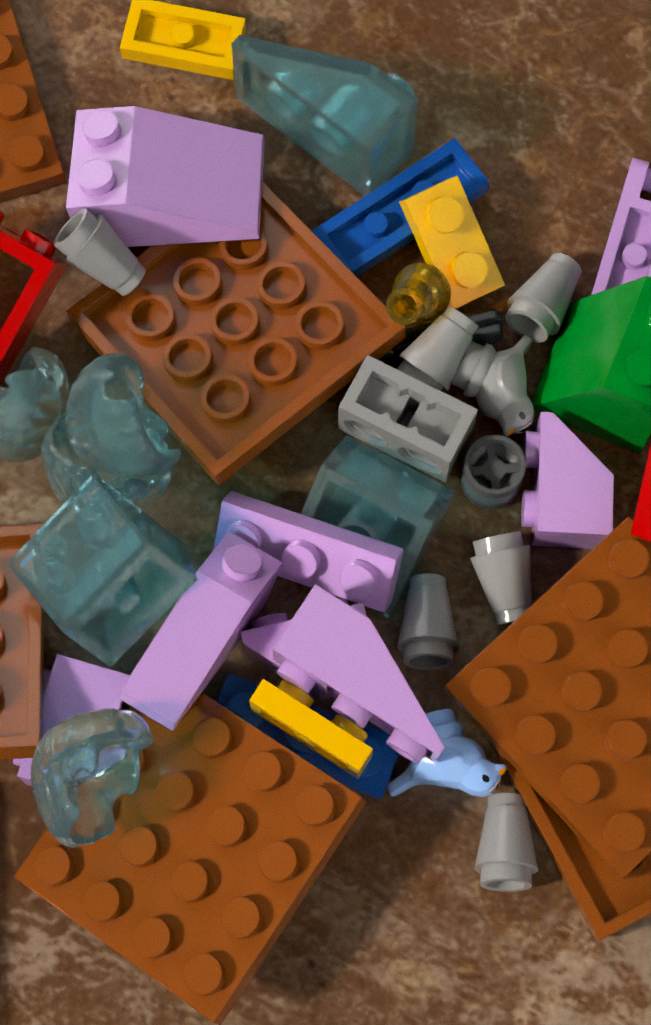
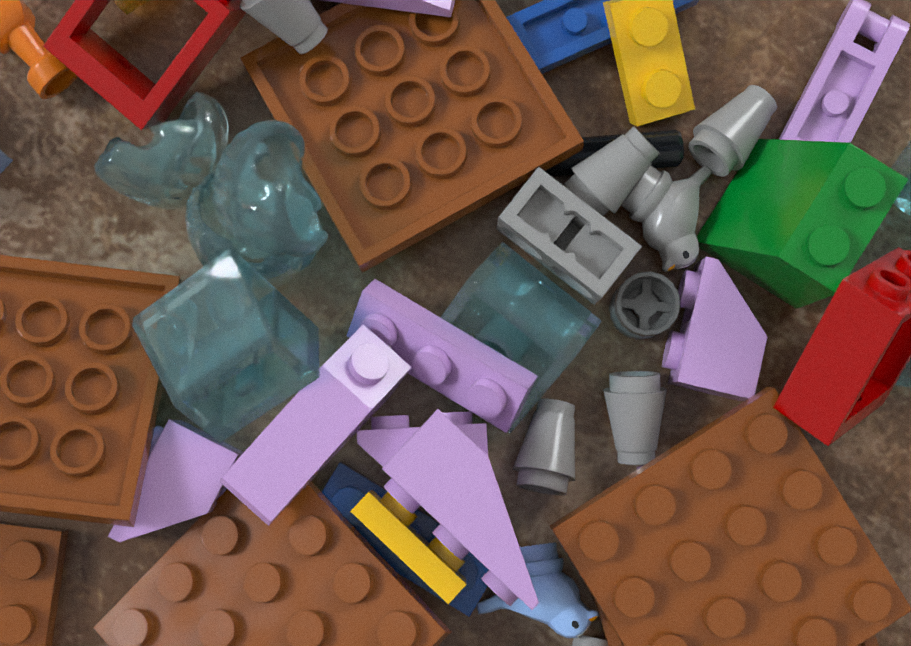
camera: 10 degrees right, 10 degrees up
(84, 769) = (167, 553): clear light blue piece -> none
(427, 288) = (603, 107): clear yellow cone -> none

